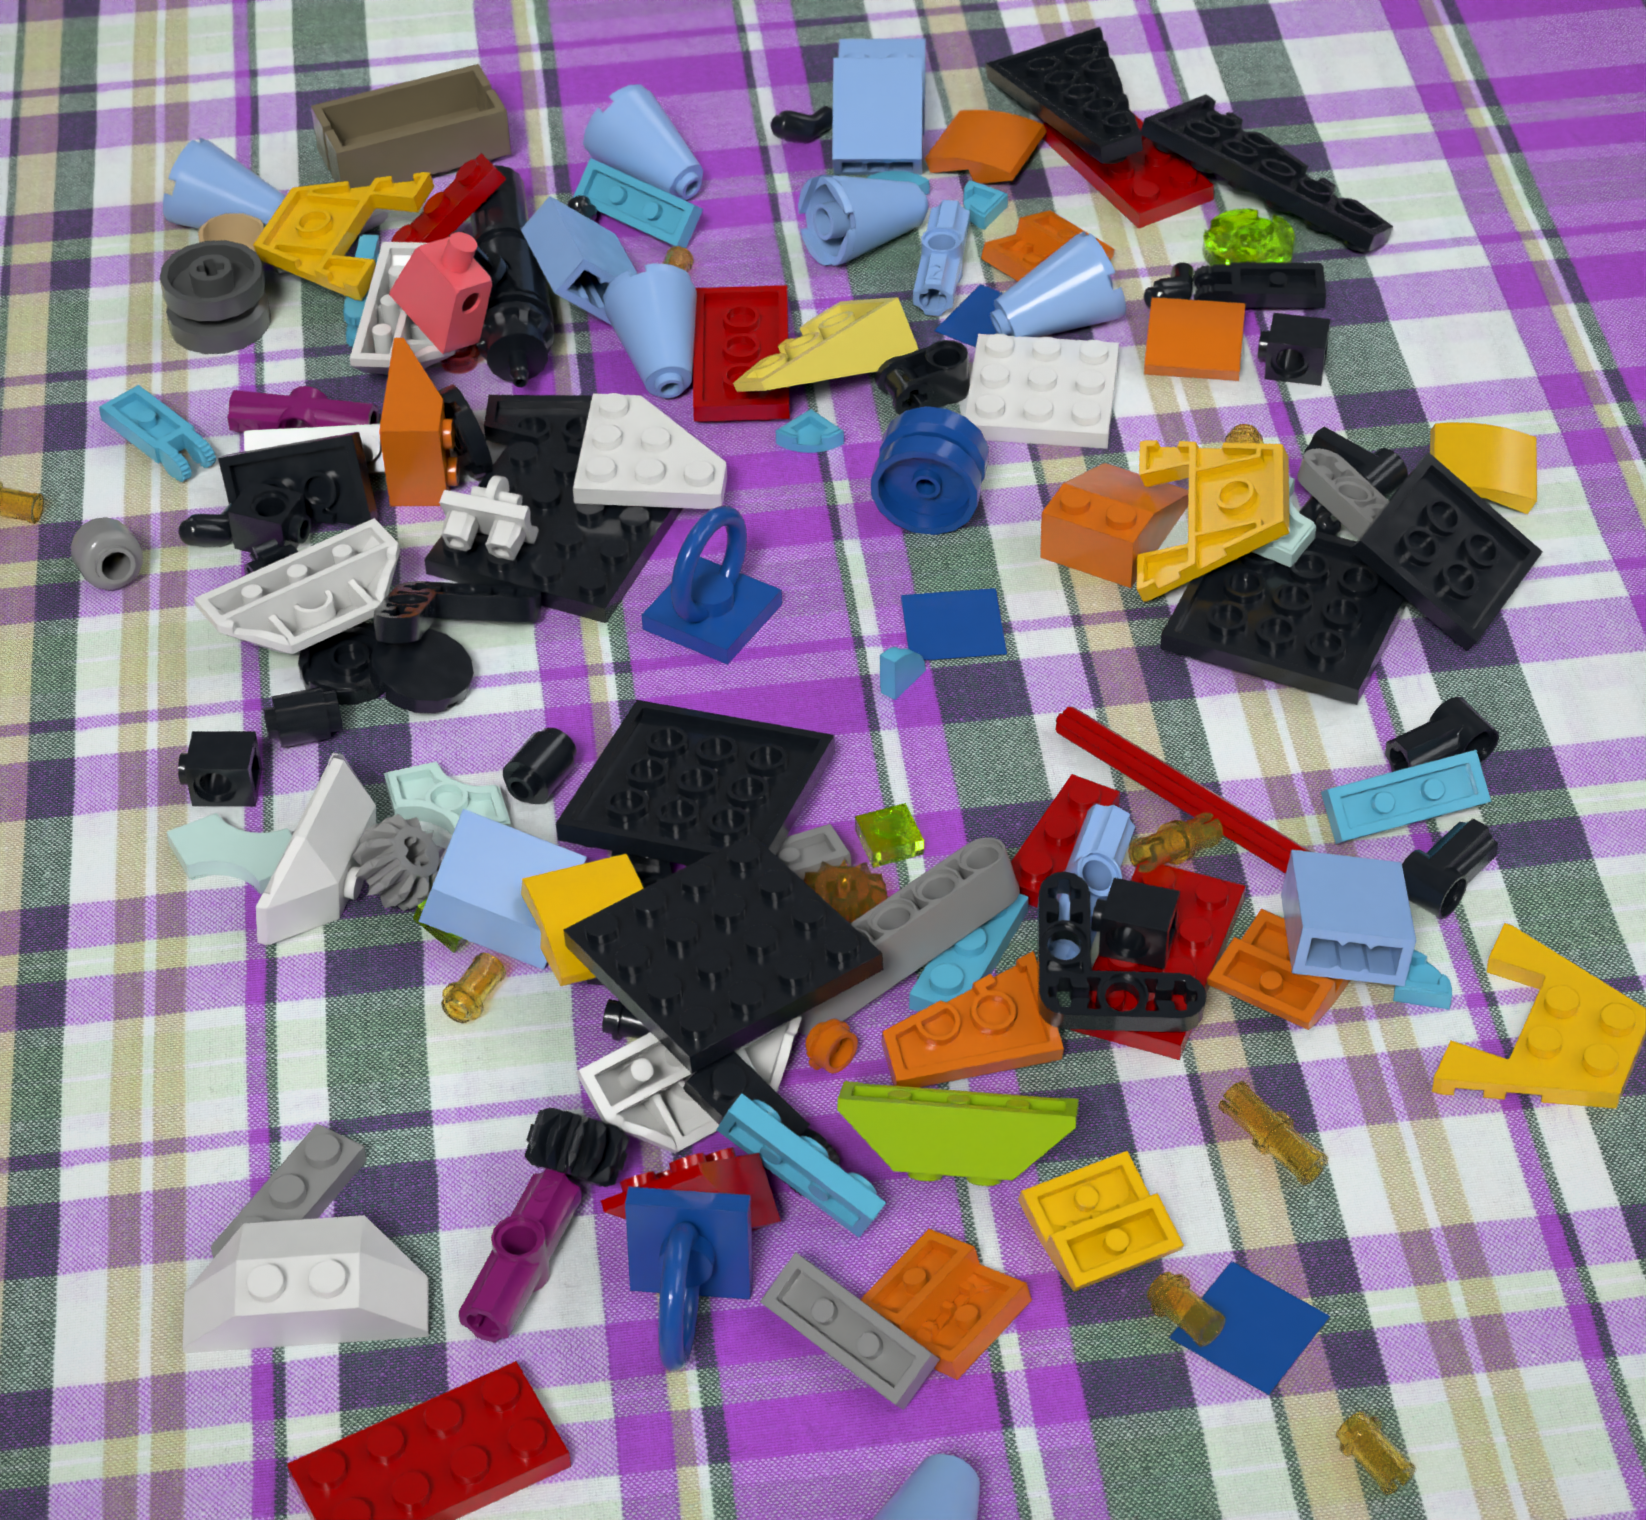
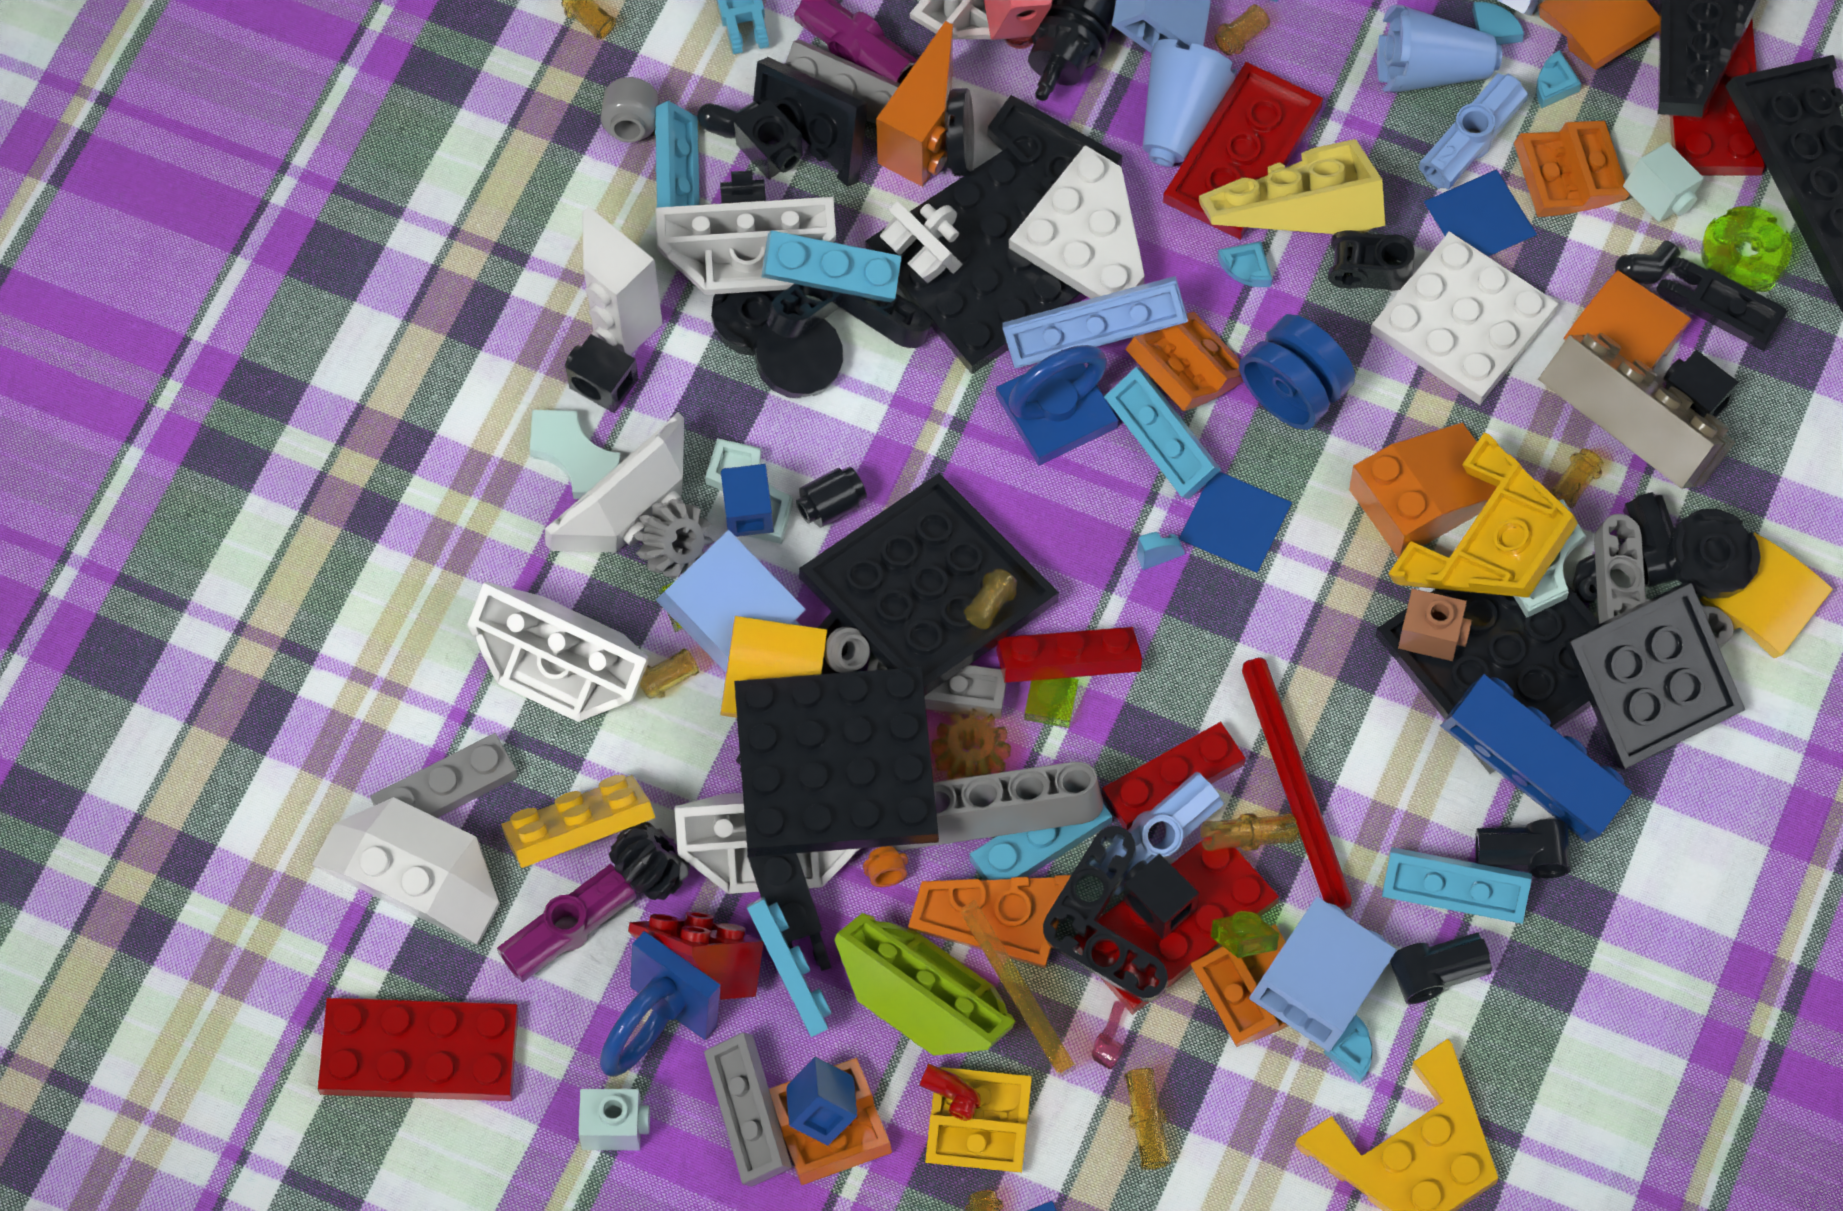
camera: 30 degrees right, 20 degrees up
(180, 567) = (676, 156): none -> medium azure plate
(194, 662) = (619, 285): none -> white slope
(303, 716) = (686, 353): black brick -> none
(341, 1017) = (554, 653): none -> white wedge
(411, 570) = (831, 266): none -> medium azure plate
(458, 786) = (747, 500): none -> blue panel
(467, 1150) = (577, 819): none -> yellow plate
(655, 862) = (857, 651): none -> light grey plate
(704, 1415) = (612, 1119): none -> light aqua brick
(740, 485) = (1096, 321): none -> light blue tile
(775, 750) = (996, 591): none -> clear yellow pin
(814, 517) = (1187, 362): none -> orange slope
(834, 579) = (1162, 433): none -> medium azure plate
(880, 784) = (1069, 654): none -> red plate
(927, 1275) = (821, 1101): none -> blue panel
(1056, 1073) = (1017, 989): none -> clear yellow tile
(1061, 293) = (1536, 230): light blue cone -> none
(1074, 1197) = (953, 1087): none -> red arm
(1141, 223) = (1664, 183): none -> light aqua brick
(1179, 1094) = (1106, 1049): none -> clear pink hand
(1216, 597) = (1434, 625): none -> nougat brick
(1244, 919) = (1245, 934): none -> clear neon green plate
(1262, 368) = (1637, 409): none -> dark tan piece
(1396, 655) = (1536, 757): none -> blue brick
(1405, 436) = (1713, 553): none -> black tile

